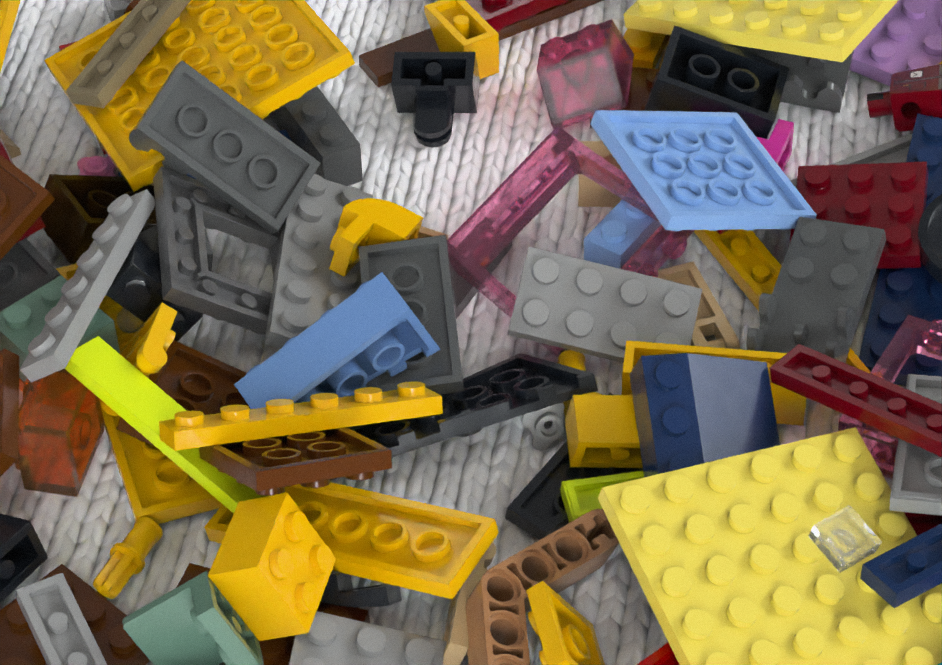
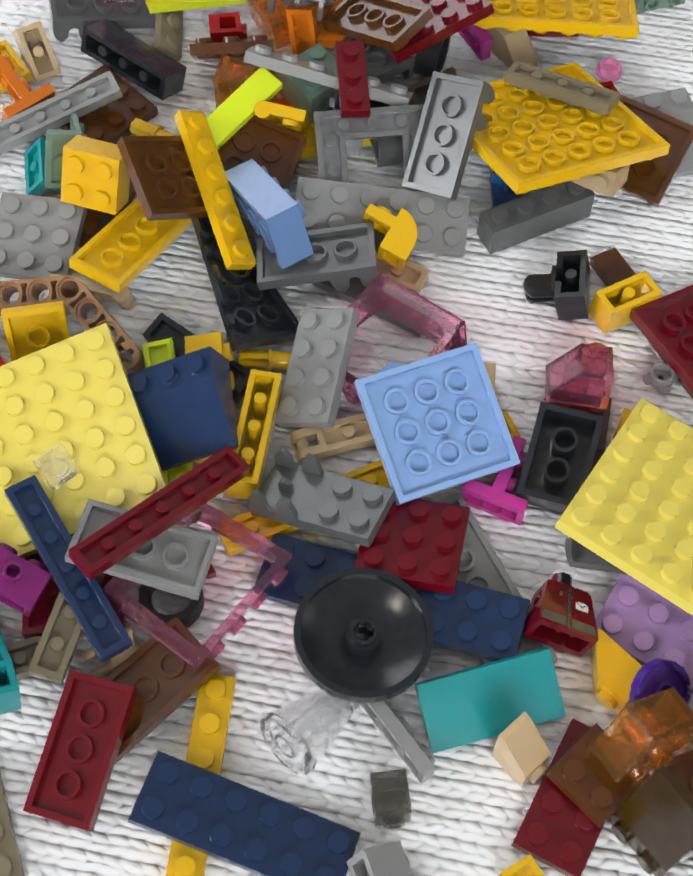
camera: 90 degrees right, 15 degrees up
(29, 54) = (609, 69): none -> bright pink plate
(117, 236) = (352, 79): none -> dark red plate
(562, 22) = (664, 371): none -> light grey plate

